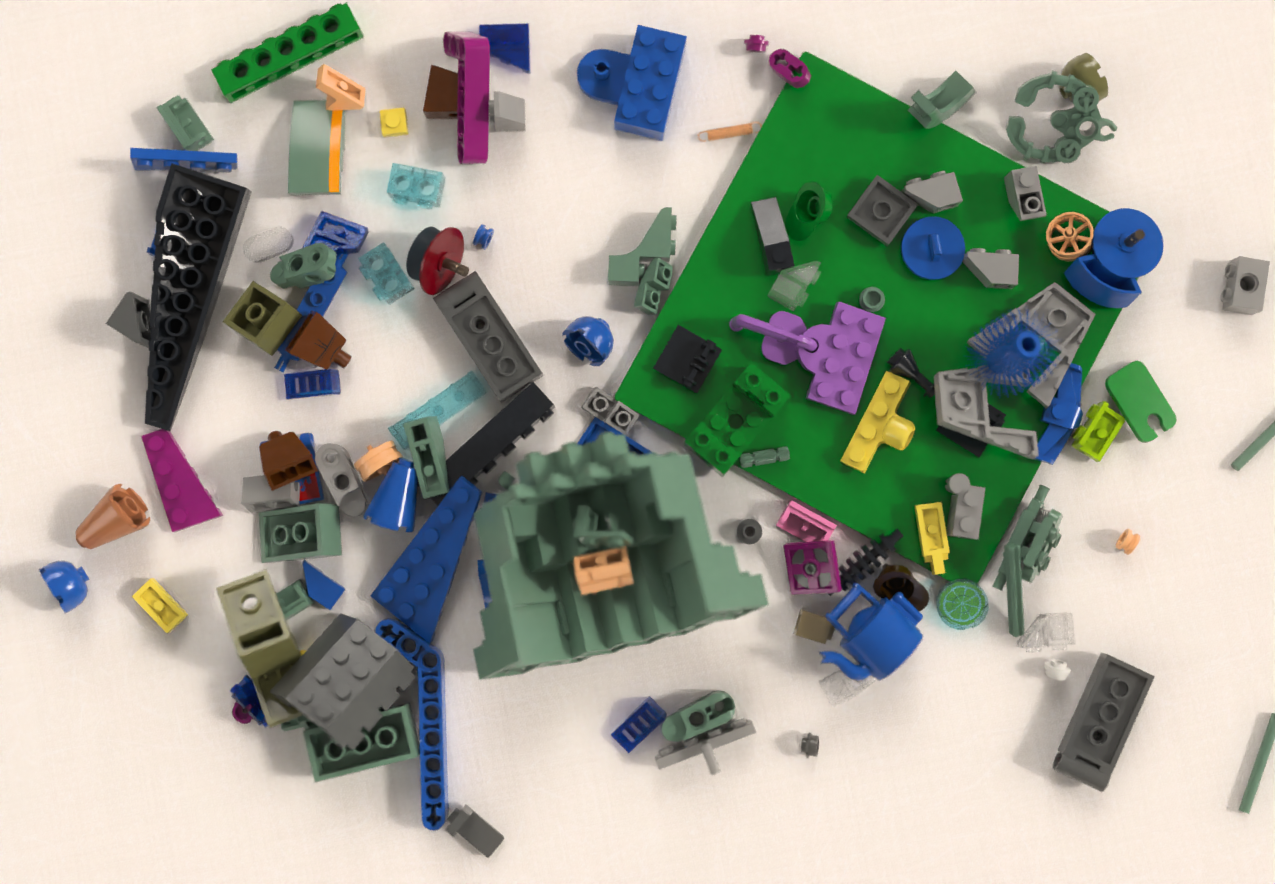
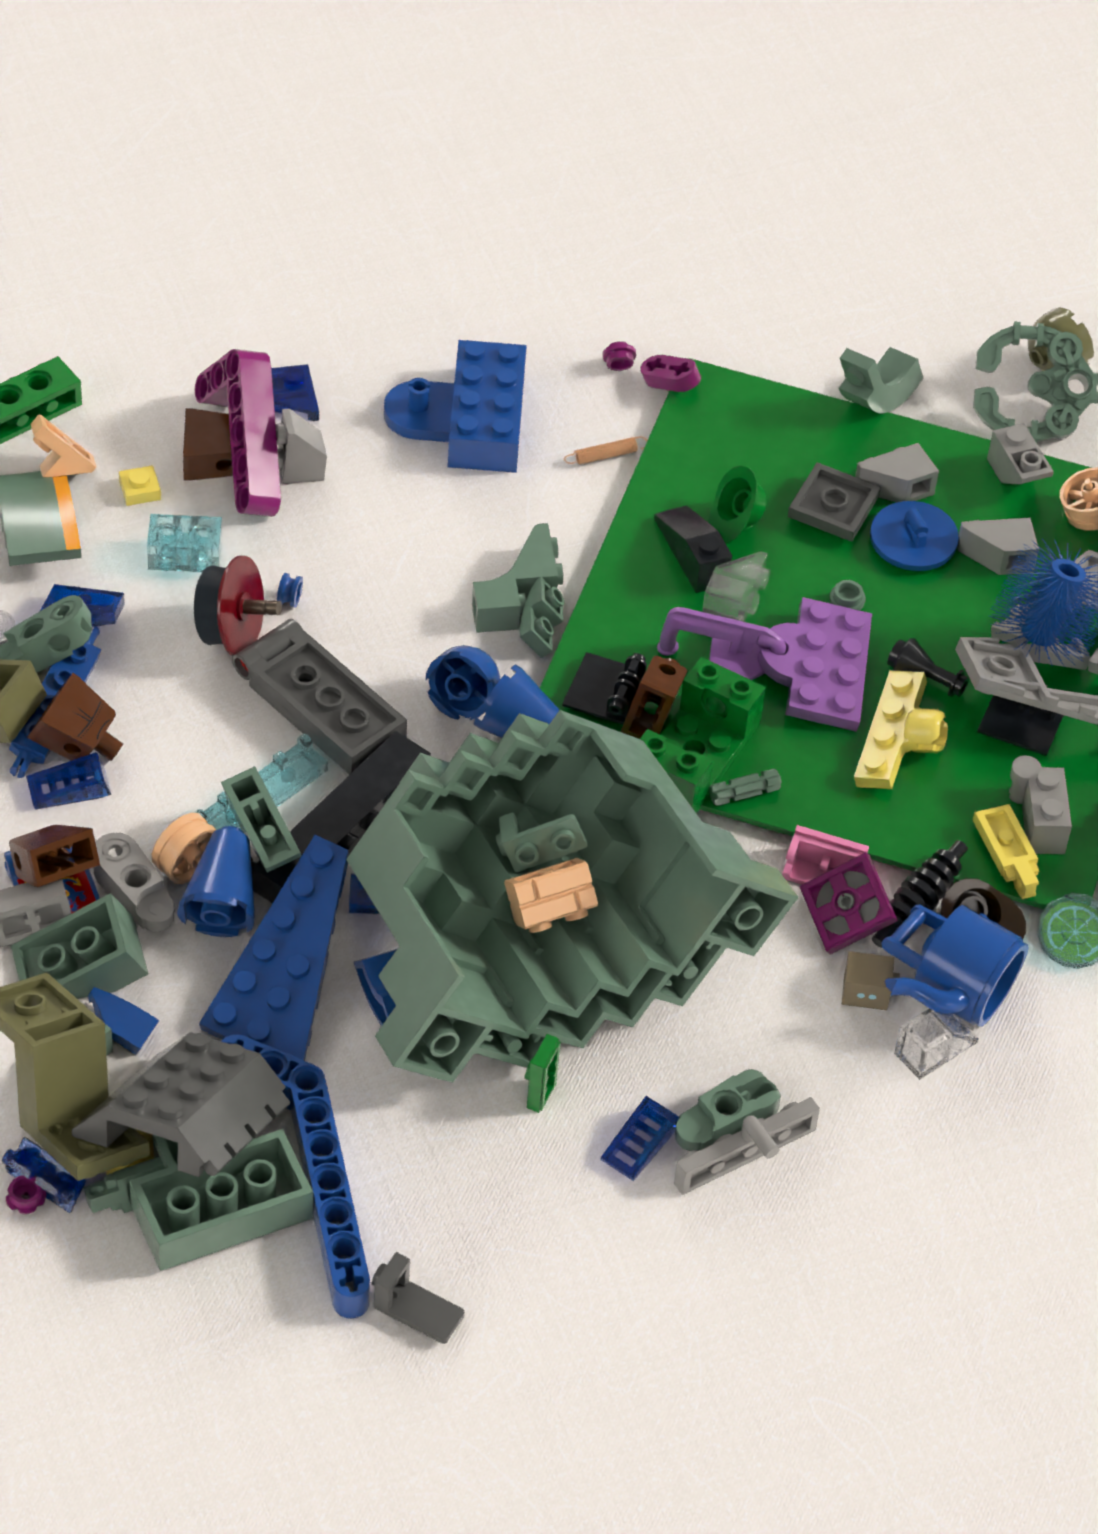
camera: 15 degrees left, 35 degrees down
(390, 271) = (159, 643): clear light blue brick -> none
(581, 678) = (542, 1073): none -> green plate
(624, 385) = (513, 697): none -> blue cone
(716, 382) = (659, 685): none -> reddish brown torso
(810, 745) = (904, 1130): dark grey plate -> none

